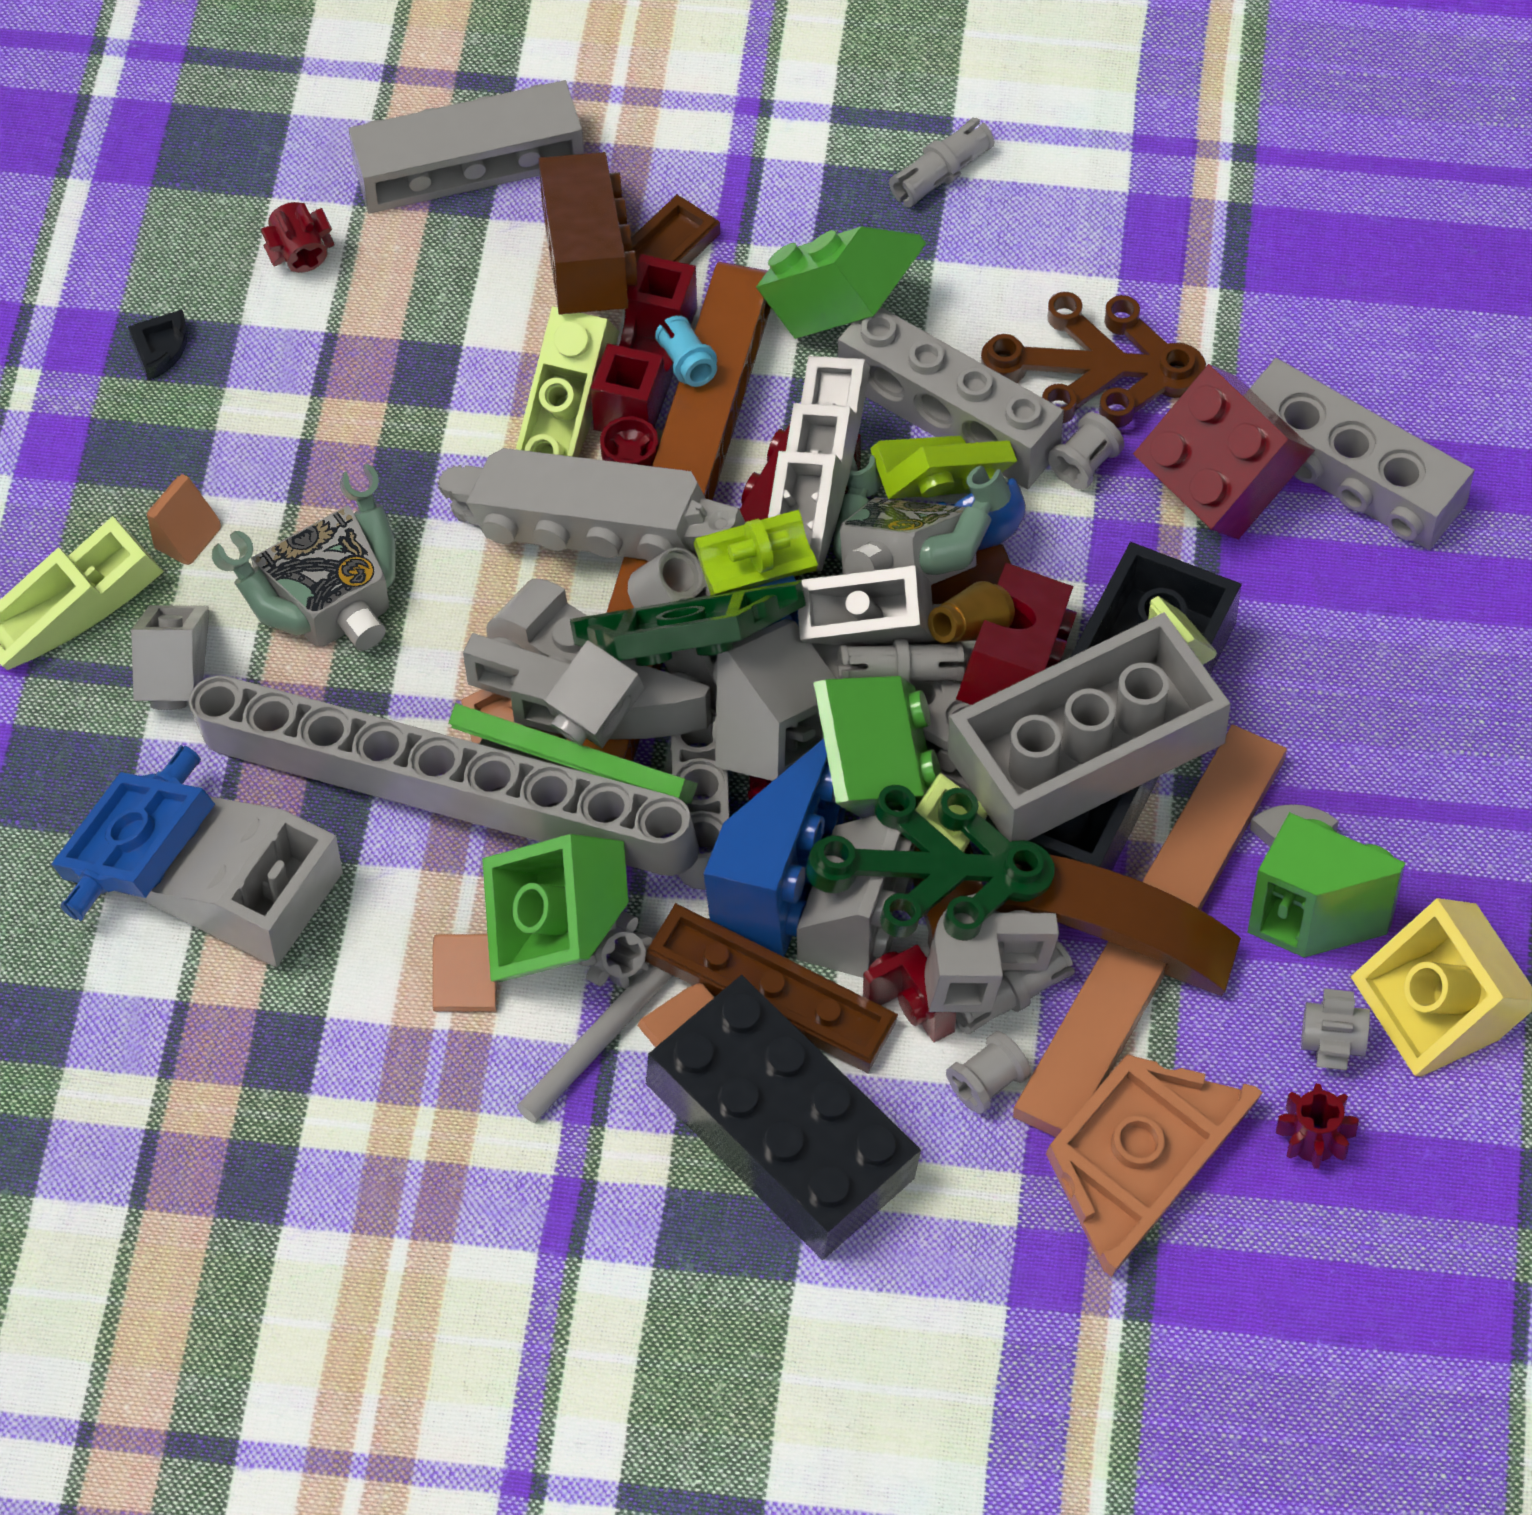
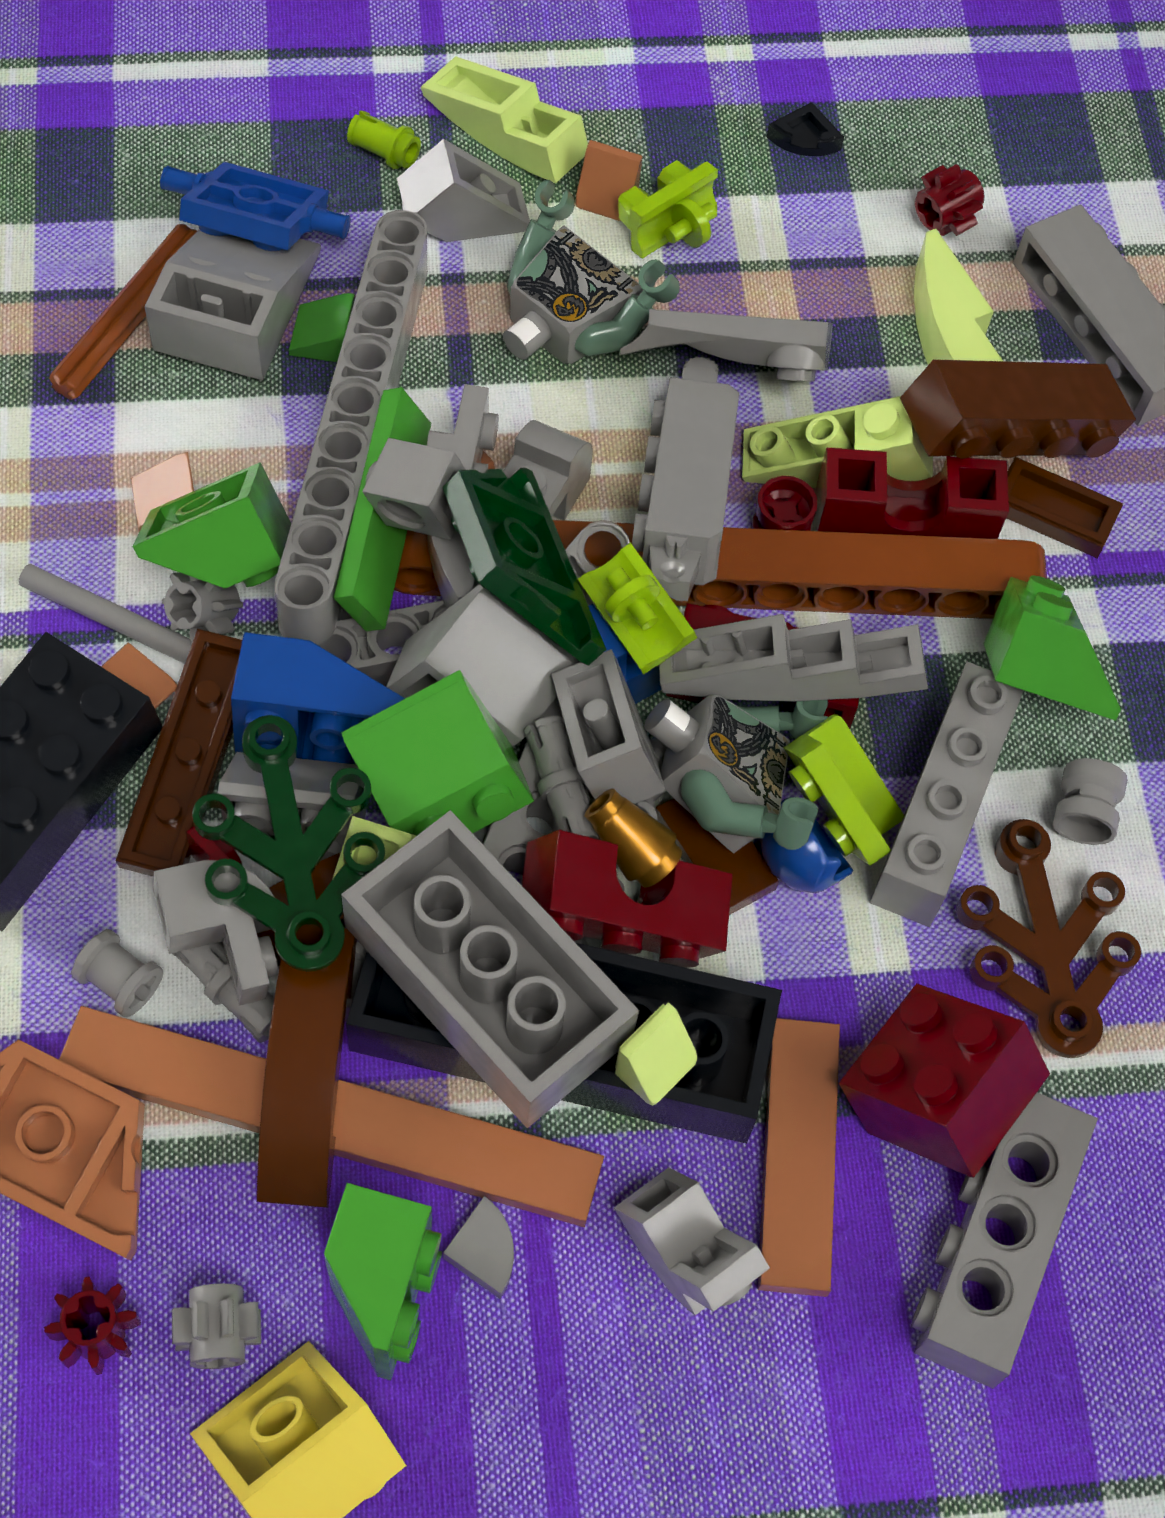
camera: 70 degrees right, 5 degrees up
(63, 712) = (394, 144): none -> lime pin
(221, 983) = (115, 322): none -> dark orange axle
(258, 460) = (672, 213): none -> lime hips
(300, 792) = (321, 327): none -> bright green slope
(428, 433) = (789, 344): none -> light grey slope
(440, 273) = (949, 307): none -> yellowish green slope
(692, 360) = (893, 531): medium azure pin -> none
(977, 296) = (1090, 801): none -> light grey wheel
(1086, 450) = (923, 944): light grey bush -> none
(1278, 590) = (800, 1158): none -> nougat tile
(1327, 676) = (688, 1243): none -> light grey brick

